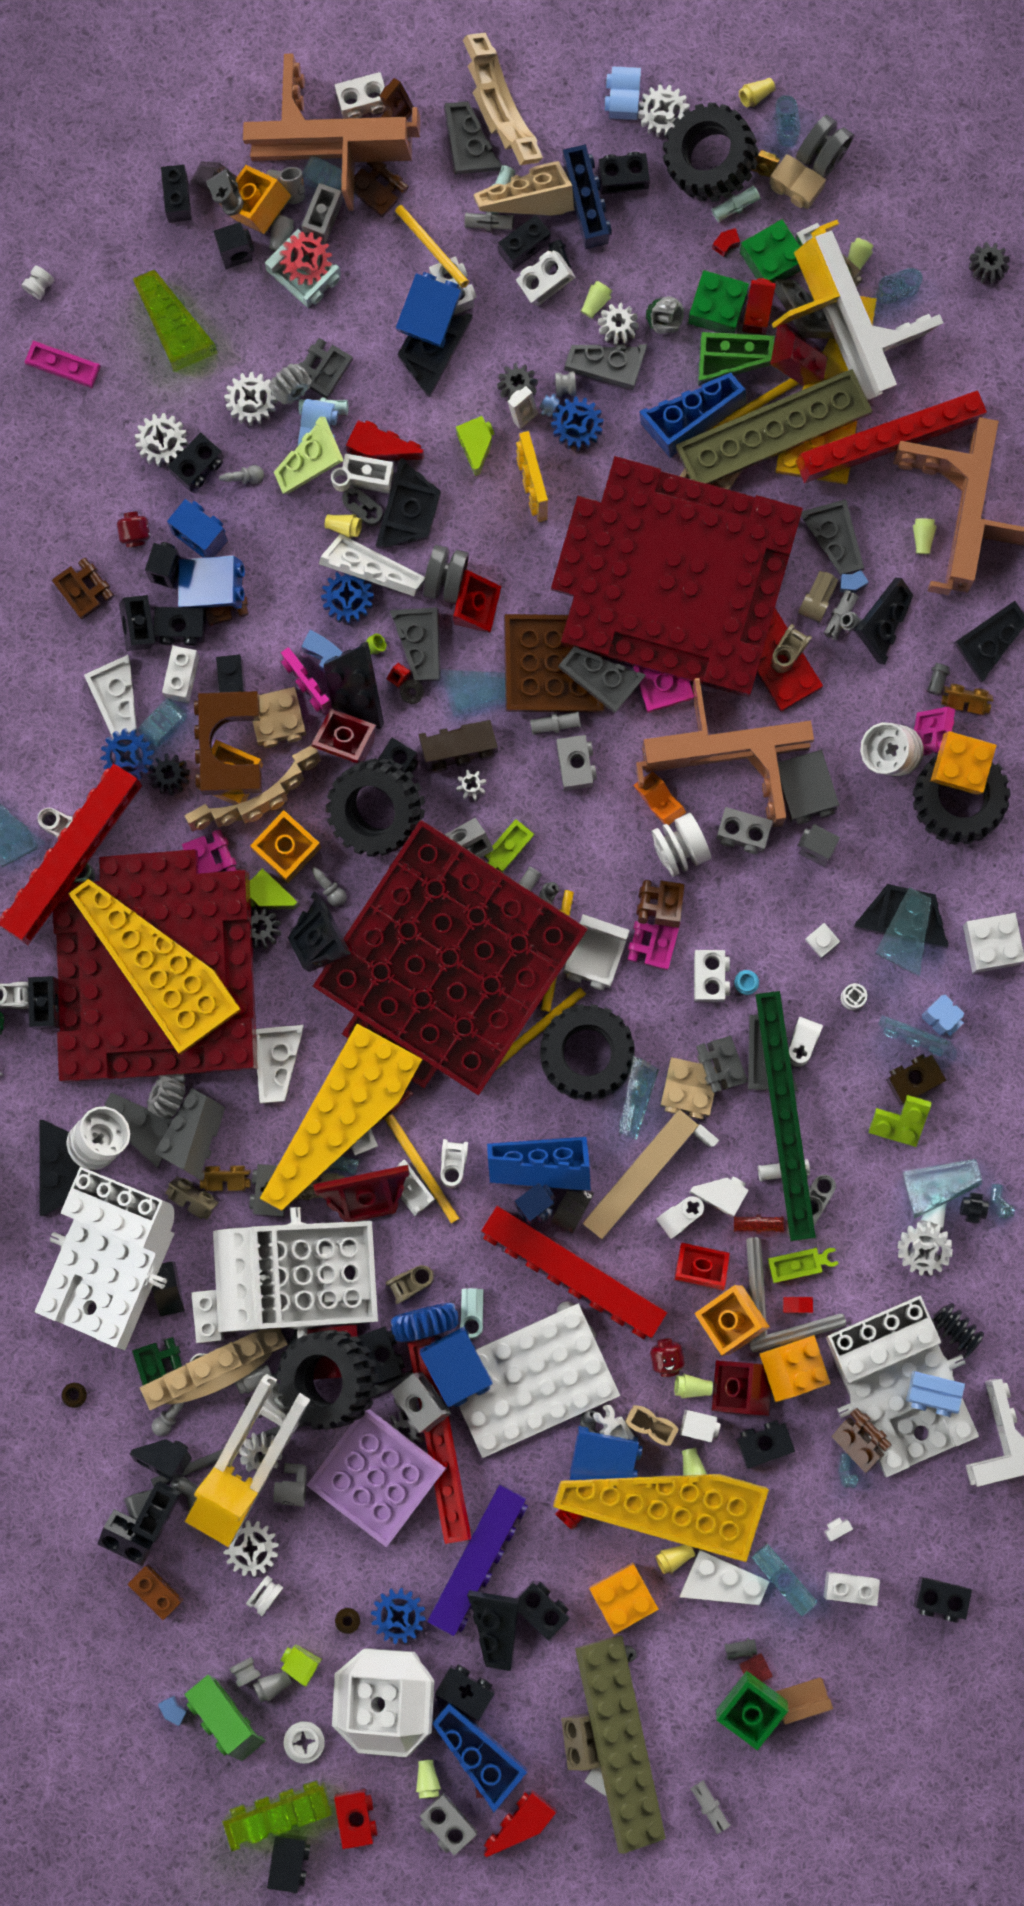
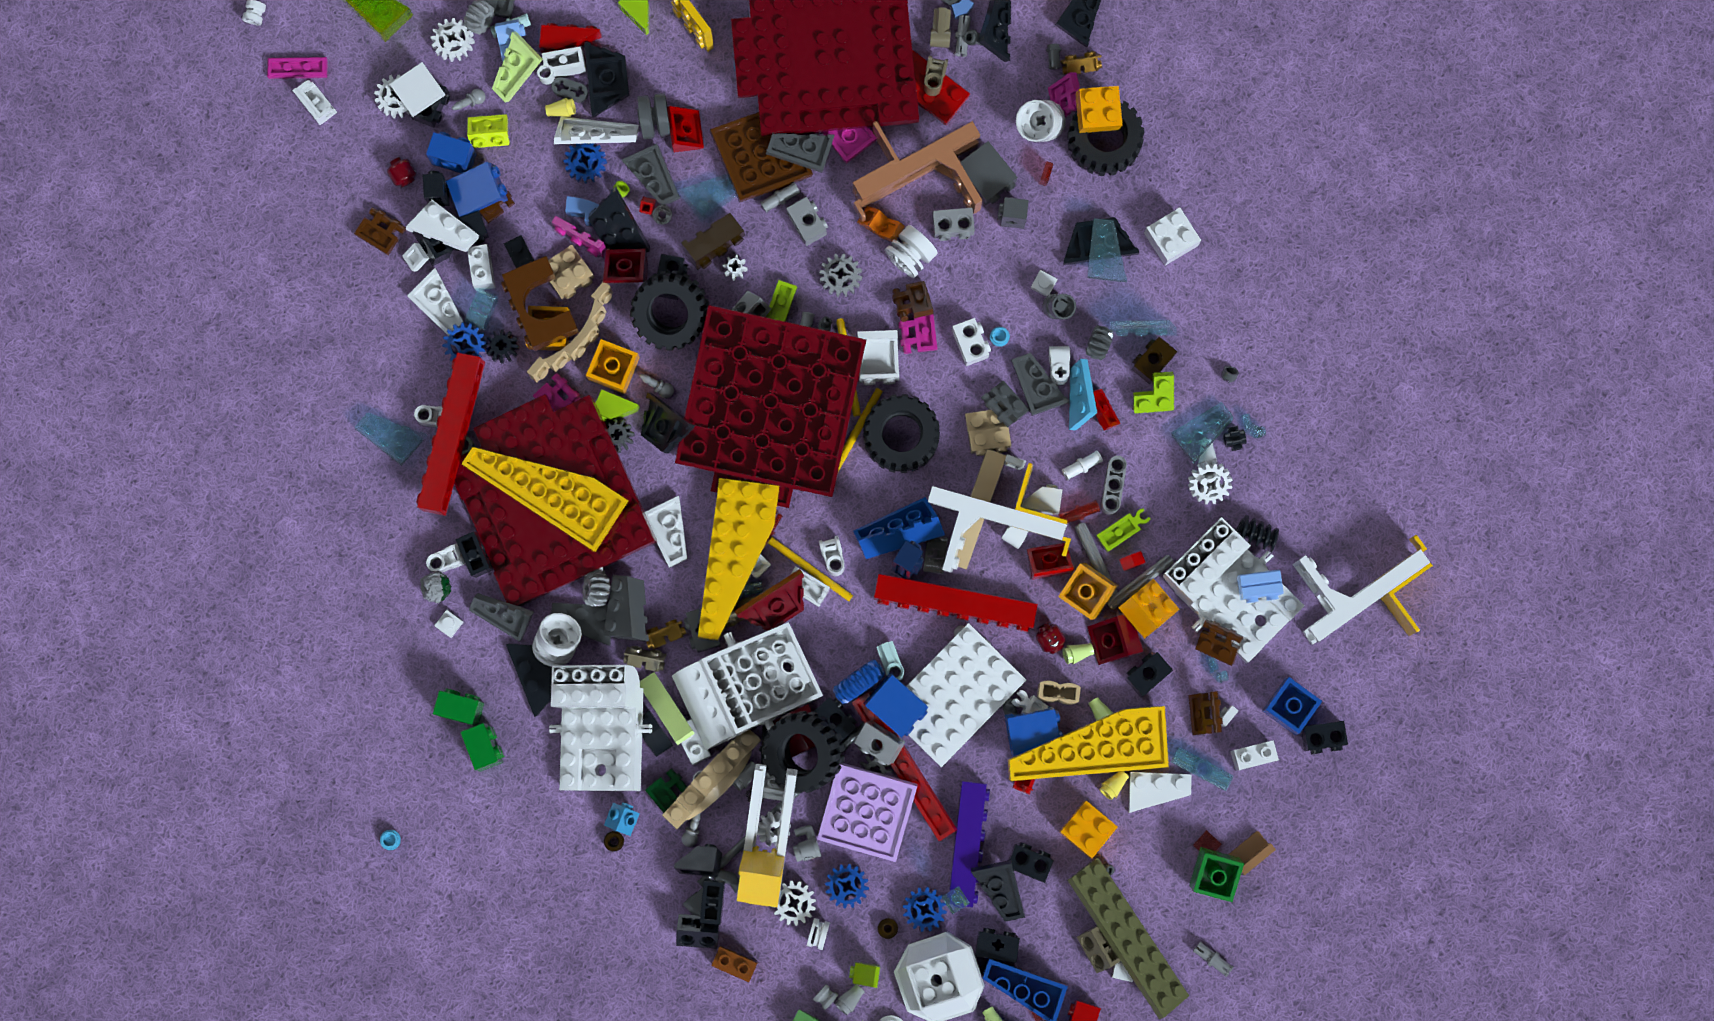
camera: 25 degrees left, 0 degrees up
(48, 1085) = (504, 616): none -> dark grey wing
(66, 411) = (314, 101): none -> white hinge
(92, 1373) = (622, 818): none -> dark azure brick
(111, 633) = (415, 257): none -> white plate
(154, 611) = (441, 225): none -> white wing
(187, 441) = (417, 89): none -> white tile
(192, 1266) = (666, 708): none -> yellowish green tile
(250, 519) = (488, 131): none -> neon yellow bracket
(328, 1545) = (840, 898): none -> blue gear
(409, 1283) = (835, 658): dark tan piece -> none
(436, 1620) = (955, 900): none -> clear light blue plate
(580, 834) = (833, 274): none -> light grey gear
(634, 1173) = (973, 509): none -> white piece
(638, 1094) = (952, 452): clear light blue wing -> none
(699, 1426) = (1094, 678): white brick -> none
(741, 1649) = (1190, 833): dark grey pin -> none
(785, 1116) = (1068, 423): dark green plate -> none
(807, 1516) = (1200, 713): none -> reddish brown plate
(815, 1085) = (1081, 395): none -> medium azure wing
(829, 974) = (1059, 306): none -> dark grey wheel
(833, 1114) = (1105, 412): none -> red plate
(850, 999) = (1081, 319): white wheel -> none
(859, 1034) = (1099, 342): none -> dark grey gear
(875, 813) = (1046, 173): none -> clear red tile
(918, 1548) = (1292, 706): none -> blue brick
(943, 1016) = (1157, 304): light blue brick -> none
(998, 1129) = (1229, 373): none -> dark grey hinge

